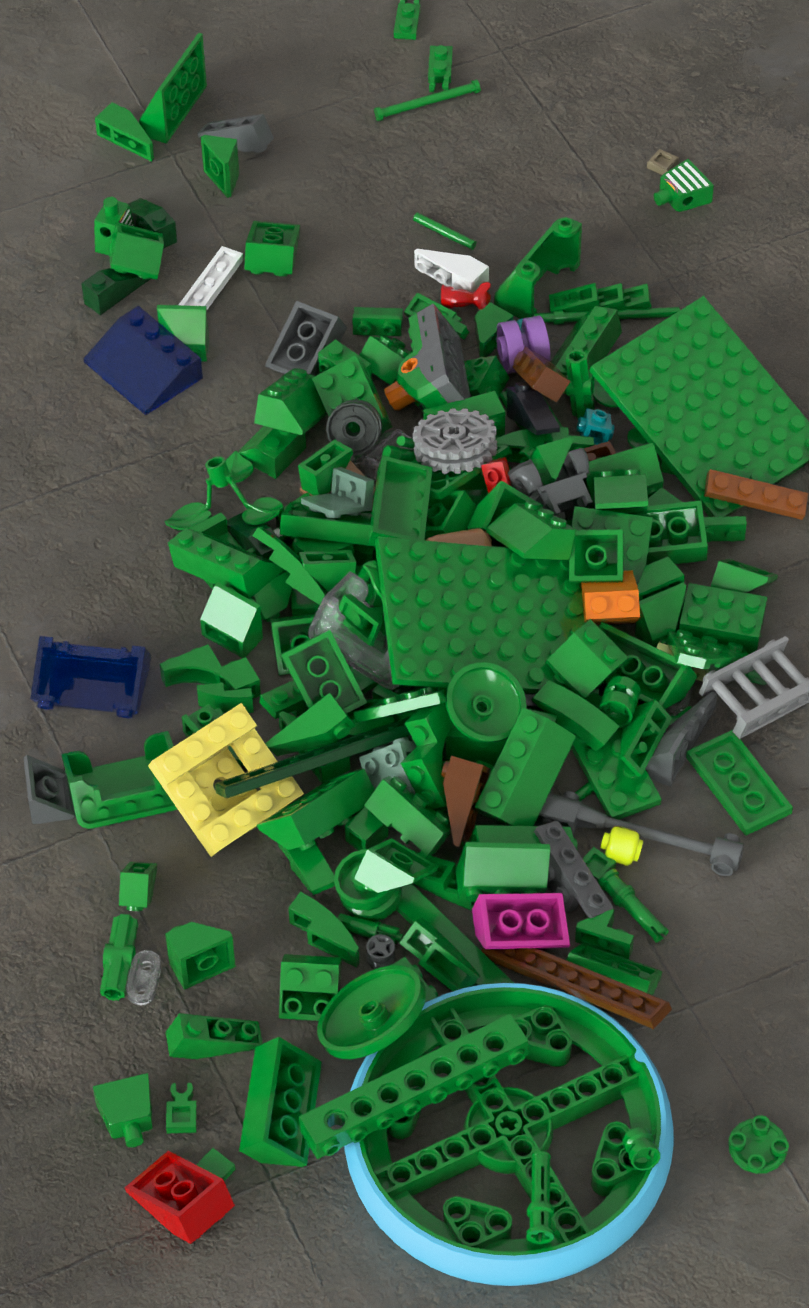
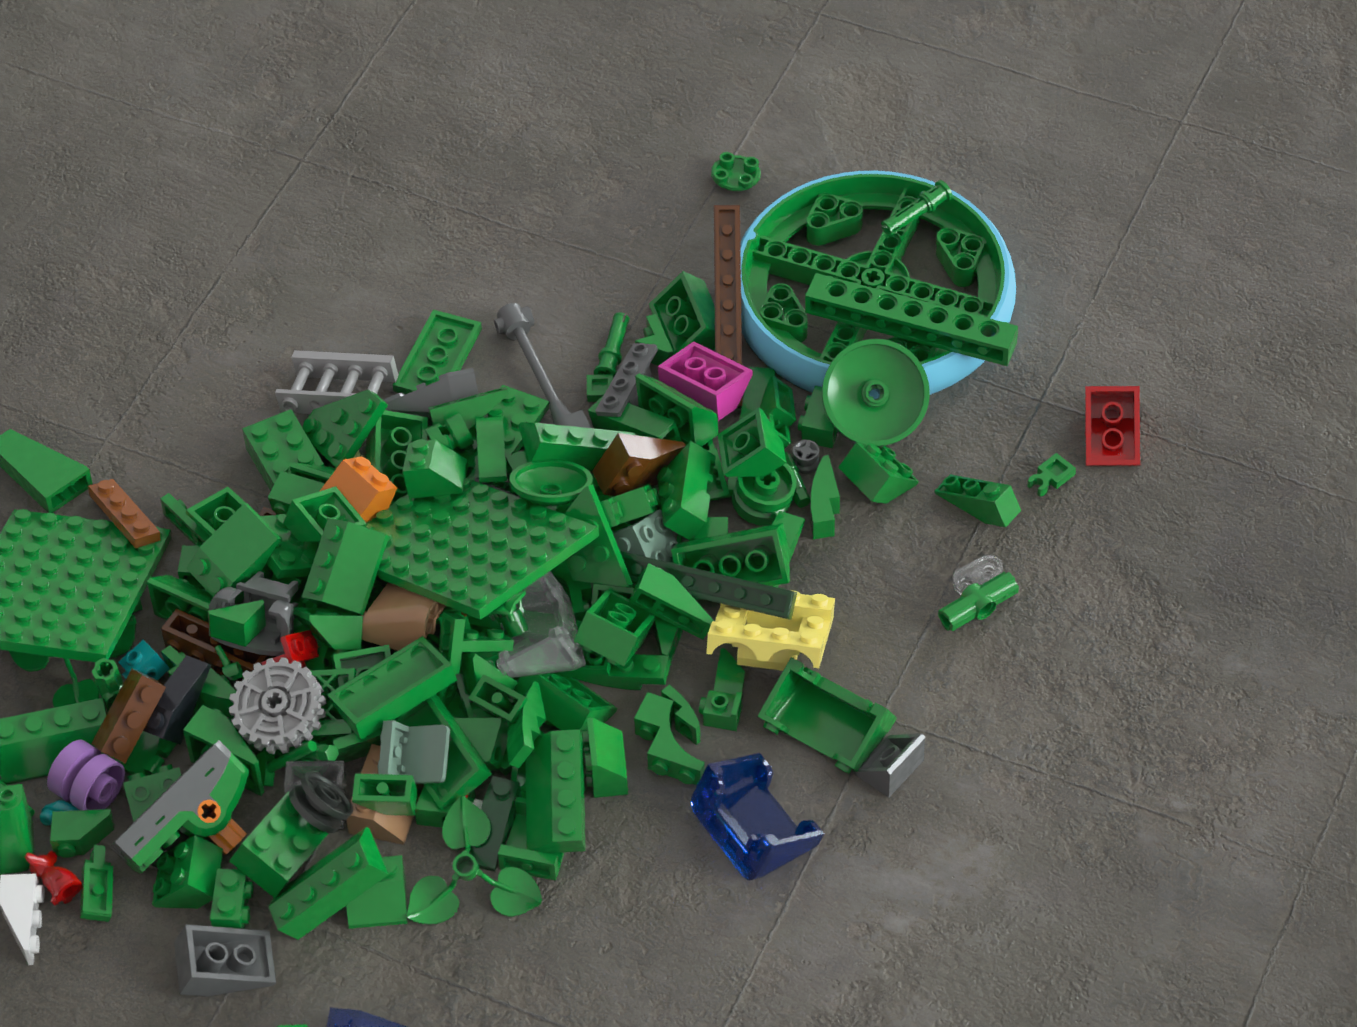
camera: 130 degrees left, 0 degrees up
(126, 1108) = (1085, 503): green torso -> none
(137, 885) = (906, 637): slope -> none
(199, 952) = (930, 542): green slope -> none
(217, 1164) = (1070, 429): green tile -> none
(280, 1091) = (988, 424): green slope -> none
(360, 619) = (535, 623): green slope -> none
(377, 321) = (139, 932): green bracket -> none
(622, 845) = (568, 380): neon yellow head -> none
(641, 1148) = (825, 182): green wheel -> none
(740, 576) = (227, 465): green slope -> none

